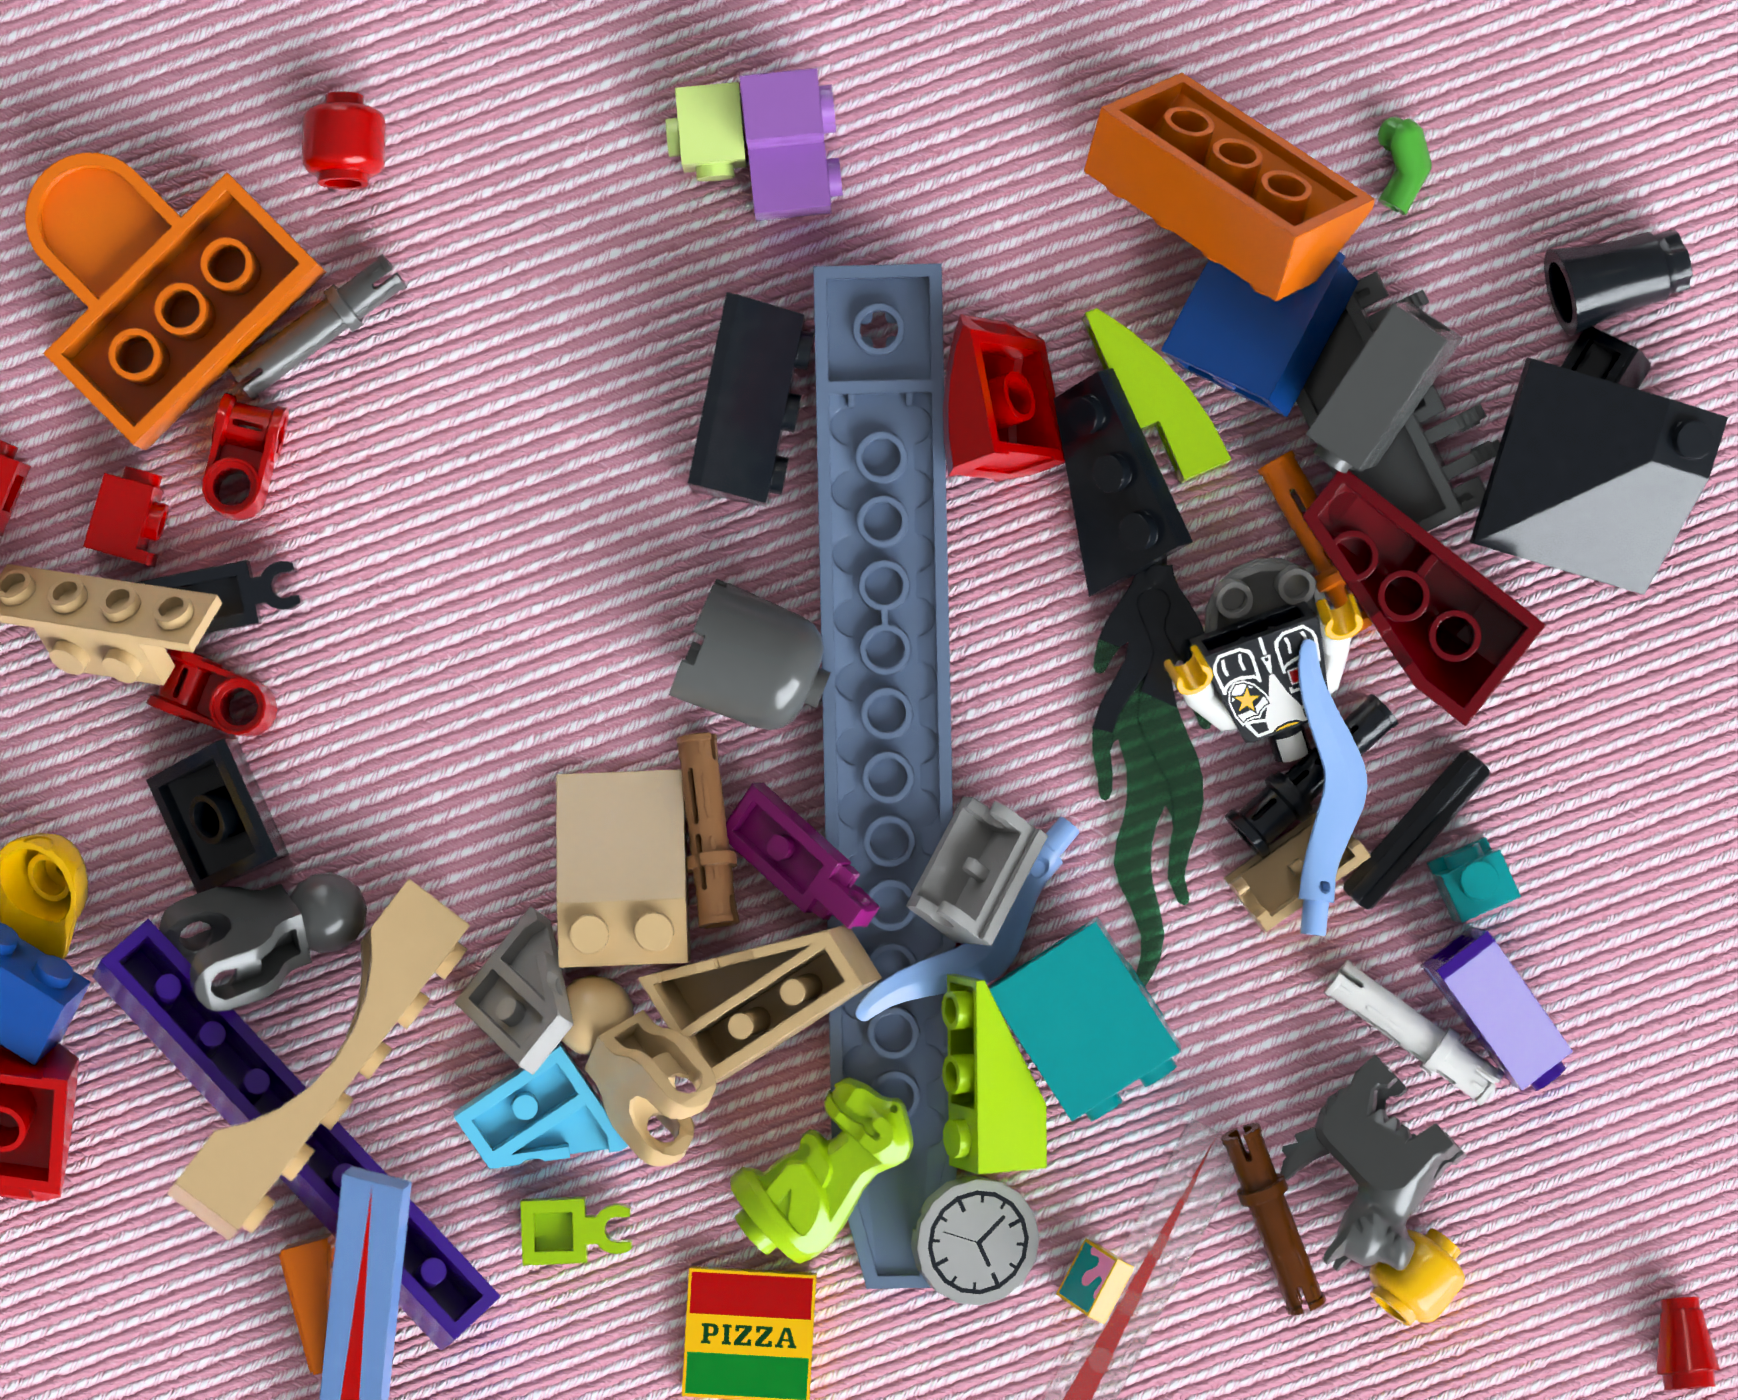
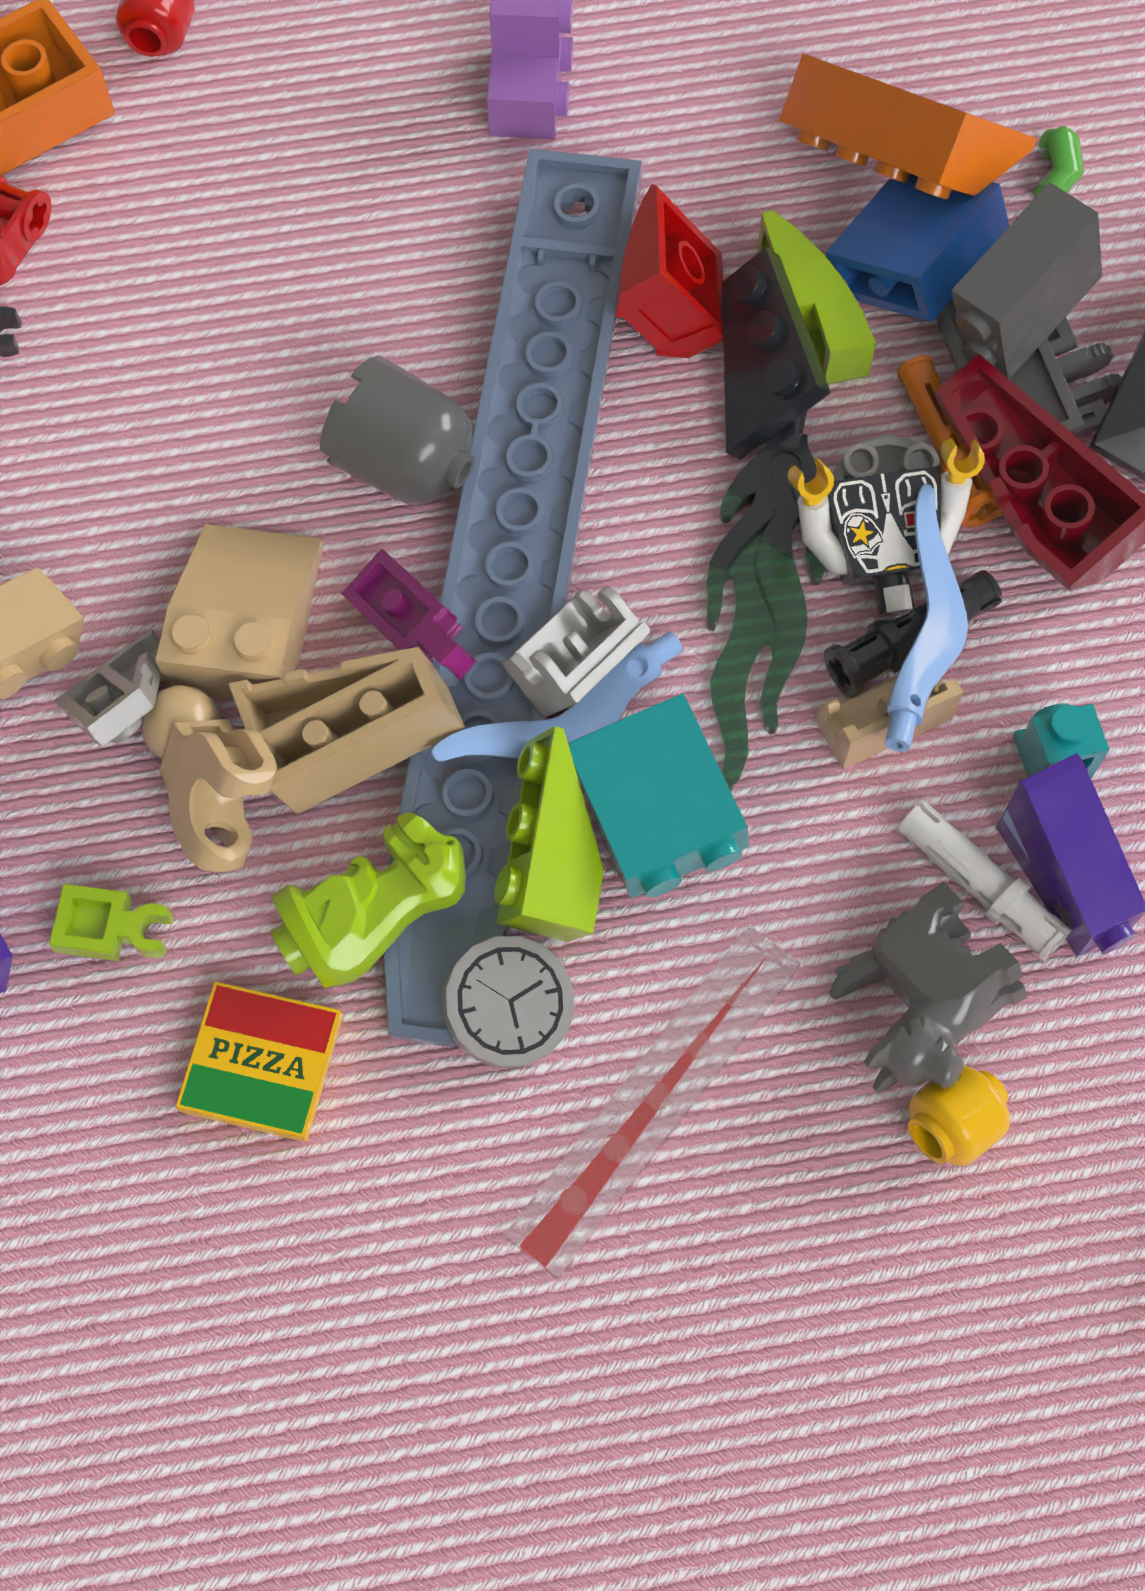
camera: 10 degrees right, 20 degrees down
(318, 326) = (95, 145): dark grey pin -> none
(538, 1116) = (105, 811): medium azure wing -> none
(708, 131) = (460, 50): yellowish green brick -> none
(709, 845) = (327, 601): medium nougat pin -> none
(750, 401) = (445, 238): black slope -> none
(1095, 1281) = (623, 1063): tile -> none
(1264, 1195) = (817, 1031): reddish brown pin -> none
(1417, 830) = (1007, 698): black axle -> none

